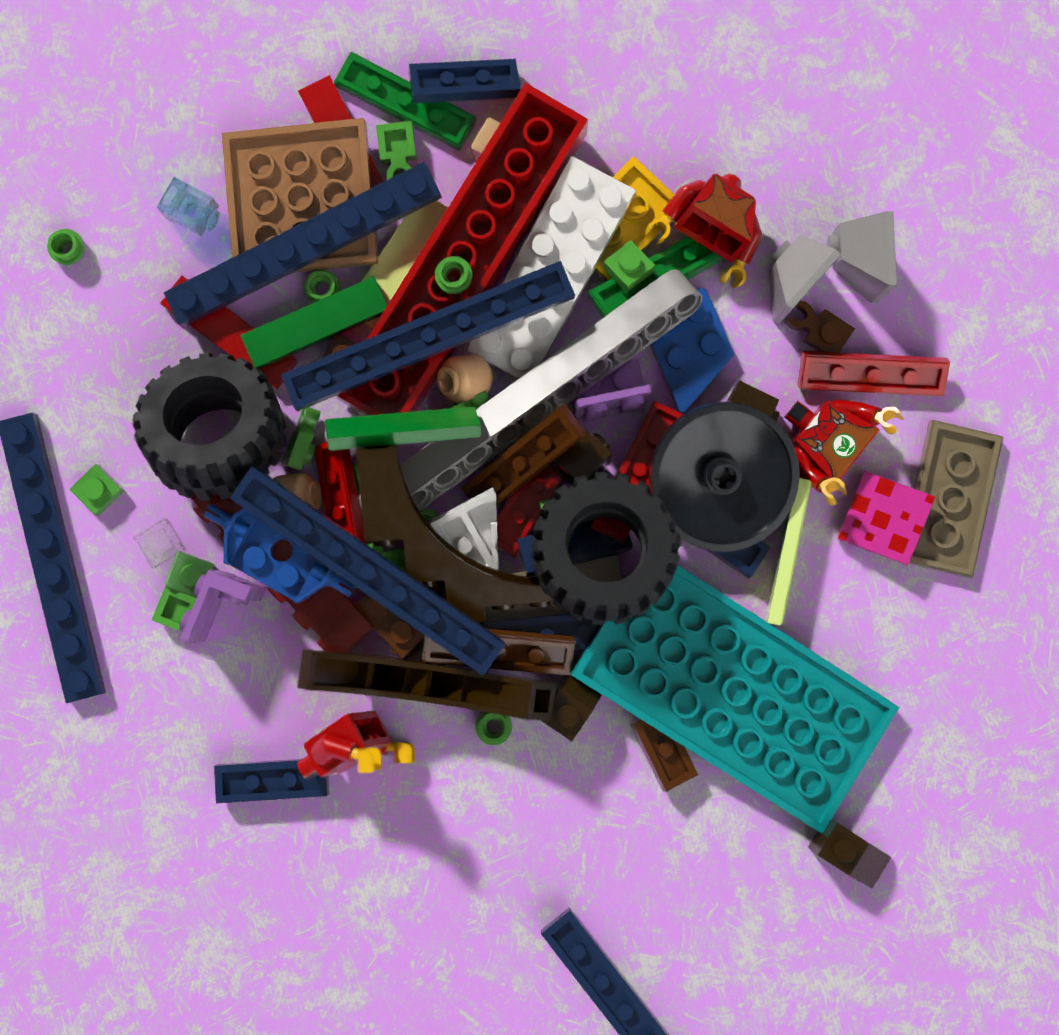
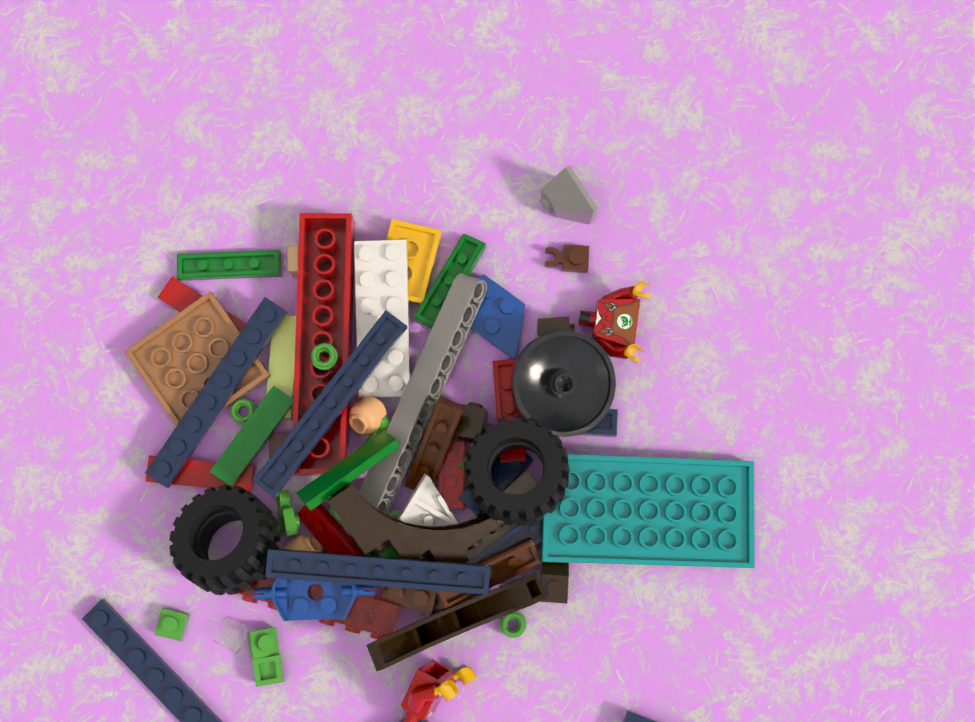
camera: 35 degrees left, 5 degrees down
(58, 240) = (55, 480): bright green plate -> none
(181, 199) = (121, 409): clear light blue brick -> none
(210, 592) = (284, 646): medium lavender bracket -> none
(396, 146) = (240, 296): bright green plate -> none
(464, 80) = (259, 232): dark blue plate -> none
(618, 390) = (467, 367): medium lavender bracket -> none
(628, 266) = (429, 288): bright green plate -> none
(666, 756) = (630, 578): reddish brown plate -> none
(717, 217) = (466, 227): red torso -> none
(788, 555) = (631, 408): yellowish green tile -> none
(796, 272) = (533, 233): light grey slope -> none
(850, 853) = (778, 570): dark brown slope -> none
(873, 373) = (616, 267): red tile -> none
(886, 518) = (676, 350): dark pink tile -> none
(960, 472) = (708, 315): dark tan tile -> none

